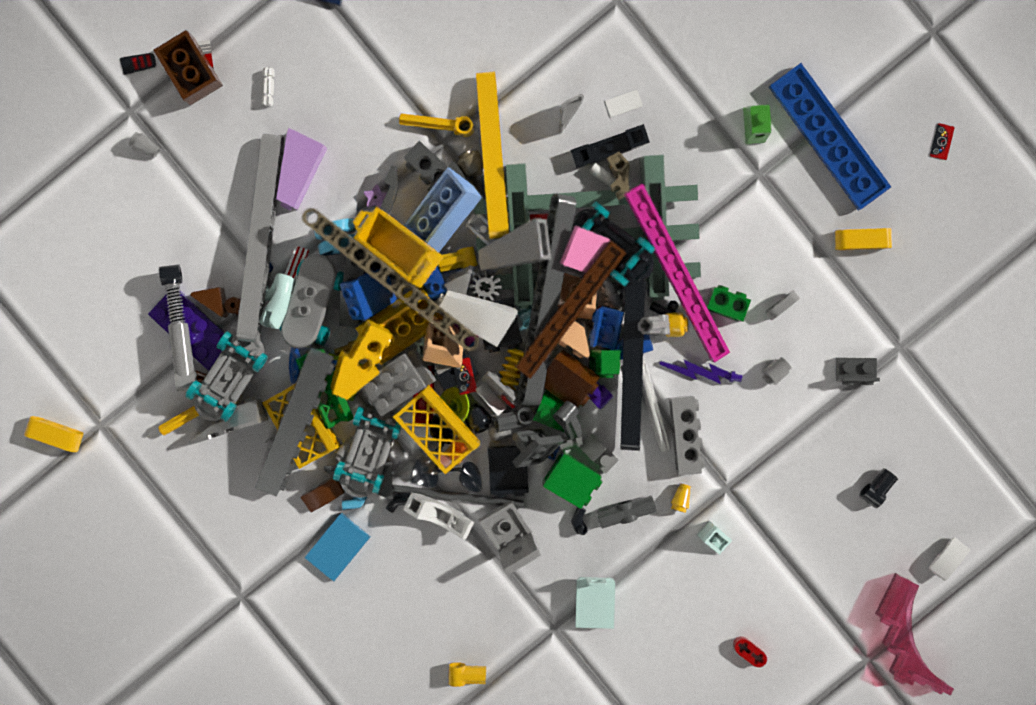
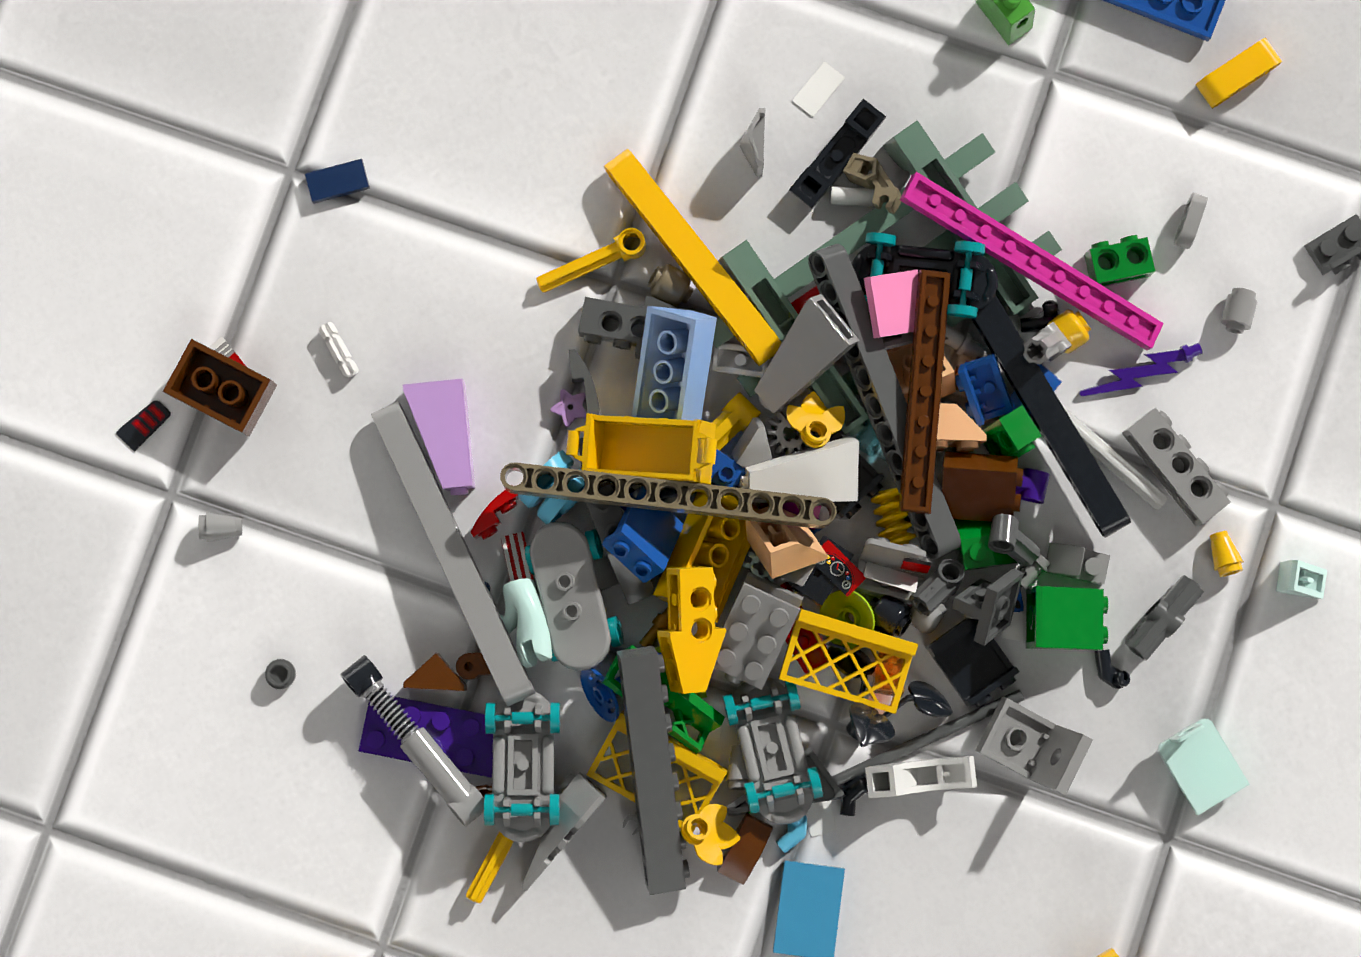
camera: 30 degrees left, 5 degrees down
(130, 246) = (280, 674): none -> dark grey plate
(293, 231) = (488, 521): none -> red slope
(308, 477) = (713, 835): none -> yellow plate
(503, 286) = (815, 417): none -> yellow plate

